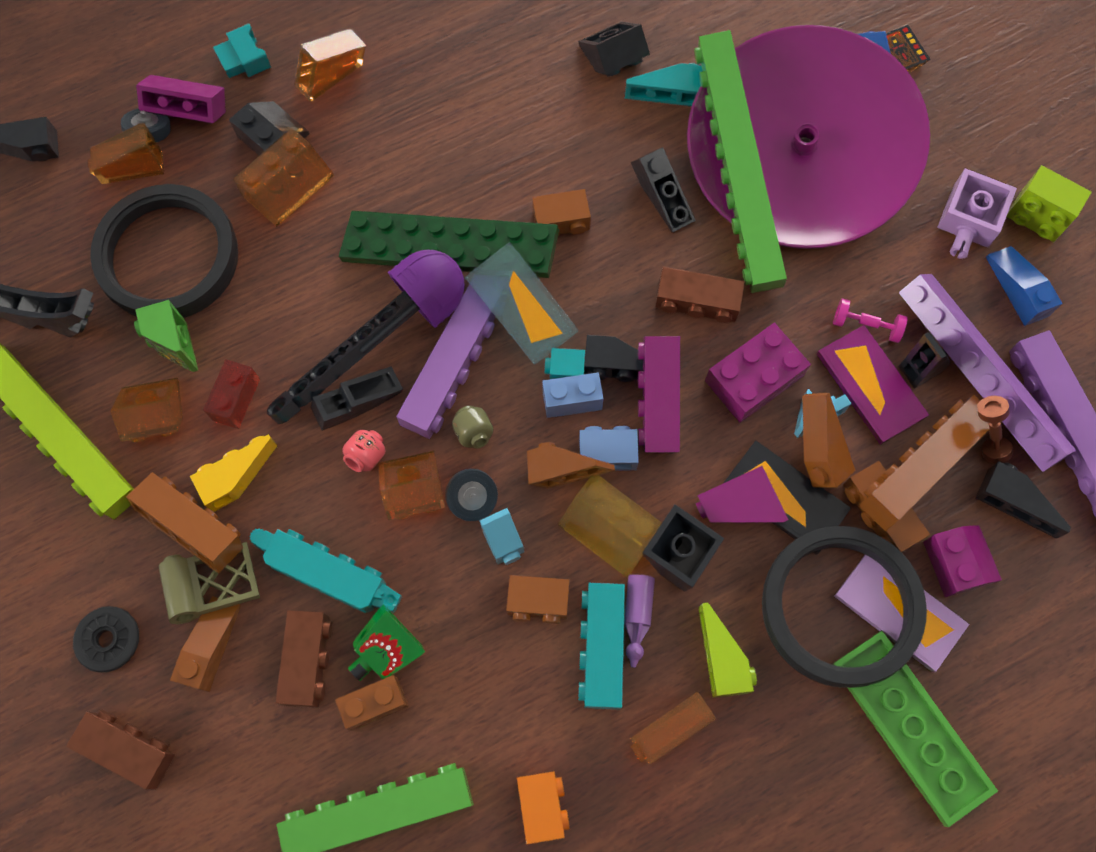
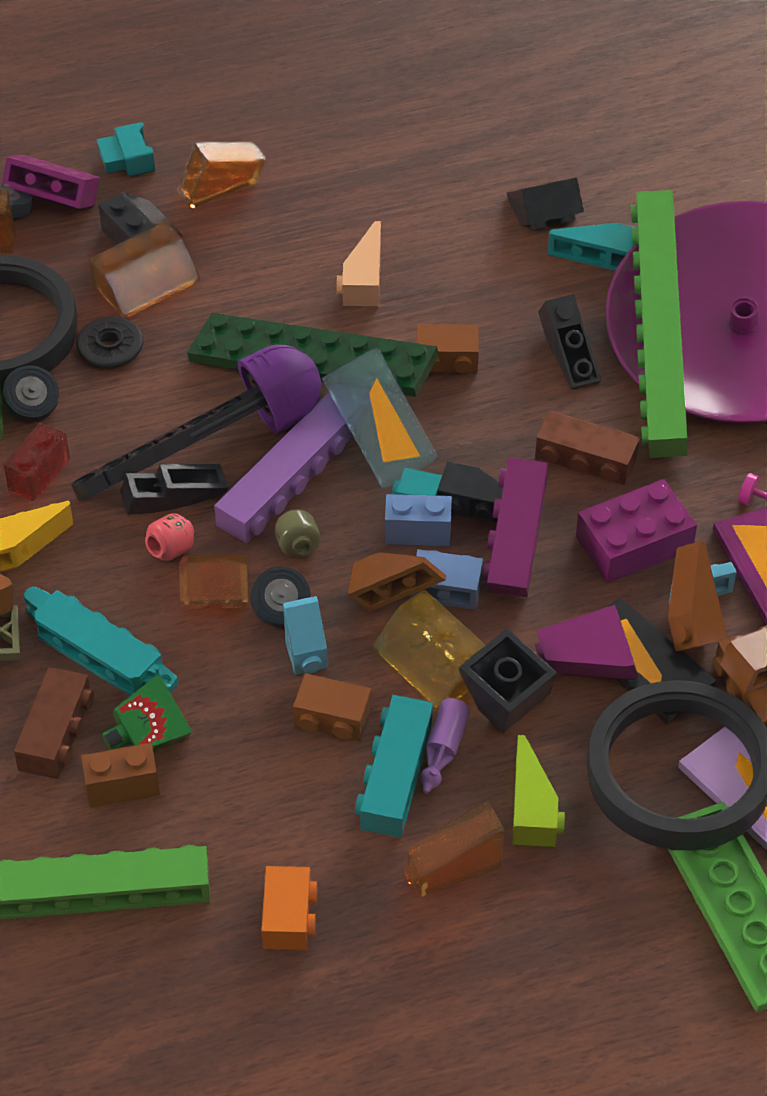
camera: 10 degrees right, 20 degrees down
(211, 324) = (30, 393): none -> black wheel
(264, 240) = (92, 335): none -> black wheel
(472, 146) = (362, 271): none -> light nougat slope

